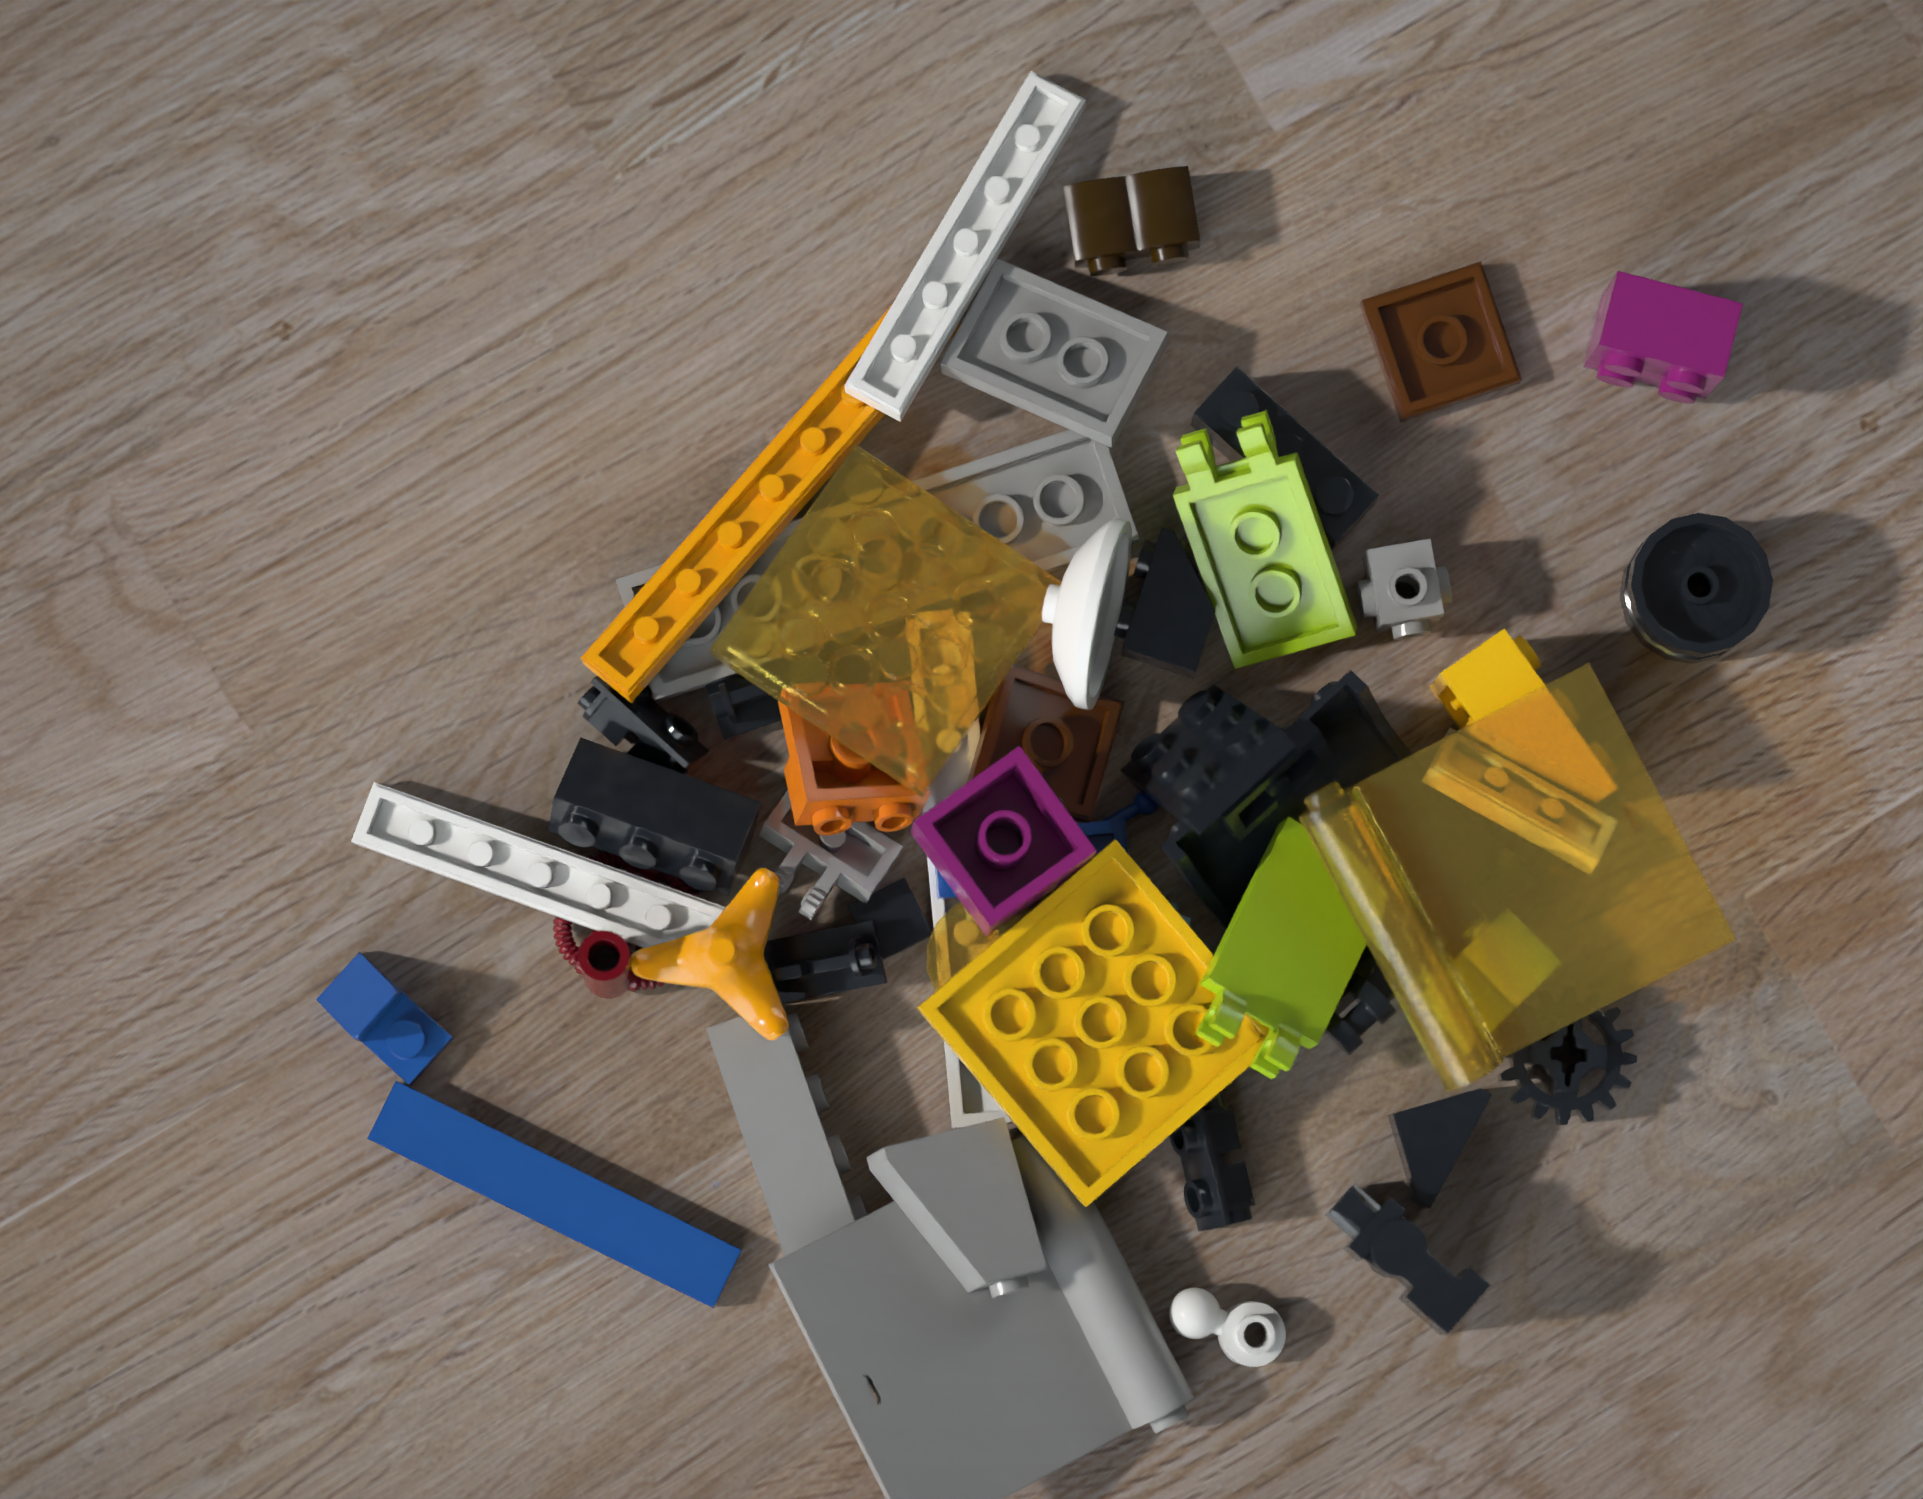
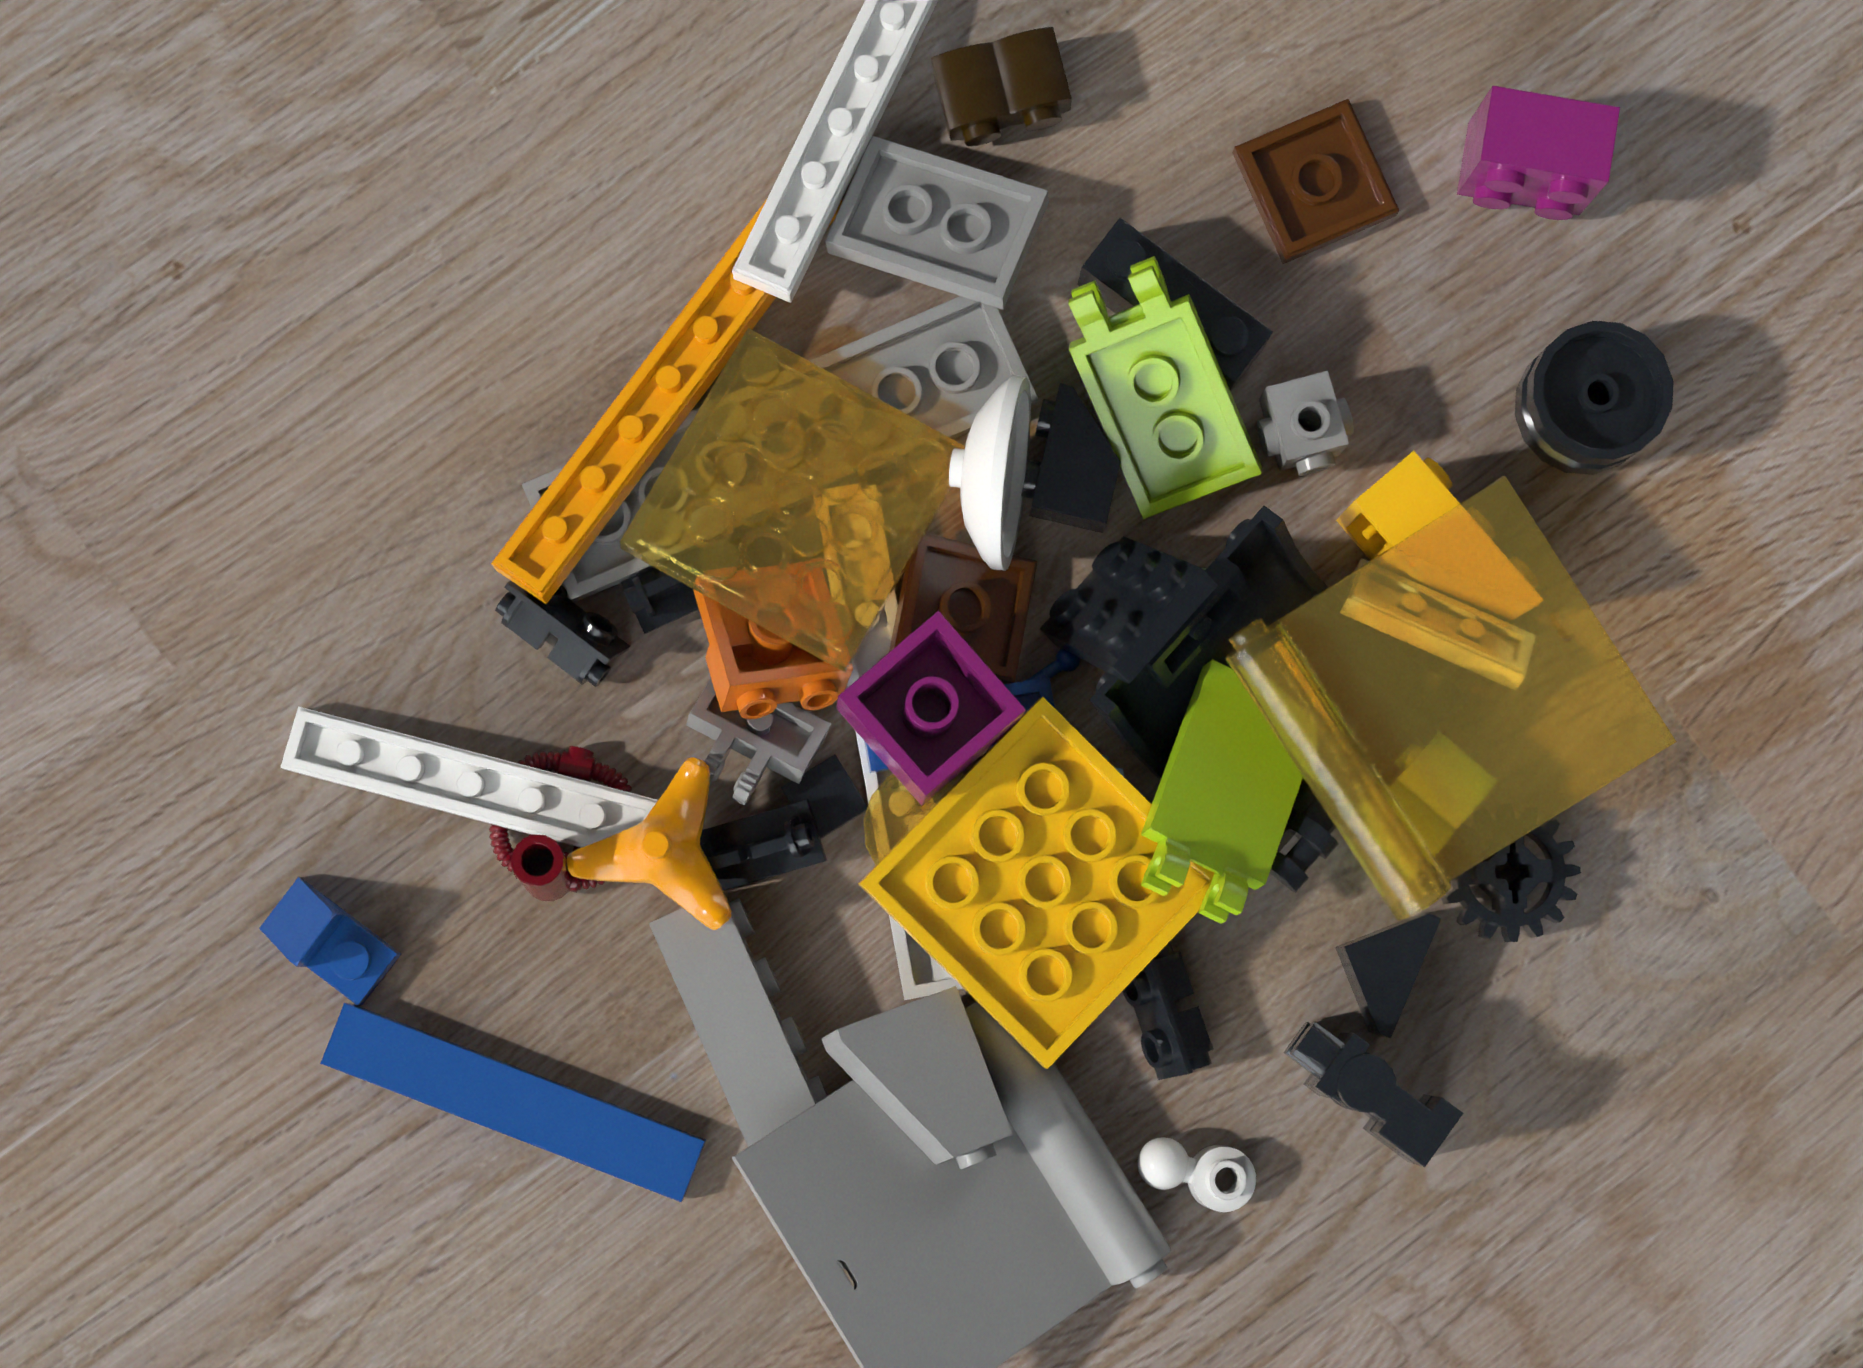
camera: 10 degrees left, 0 degrees up
(653, 816) = (579, 716): black brick -> none

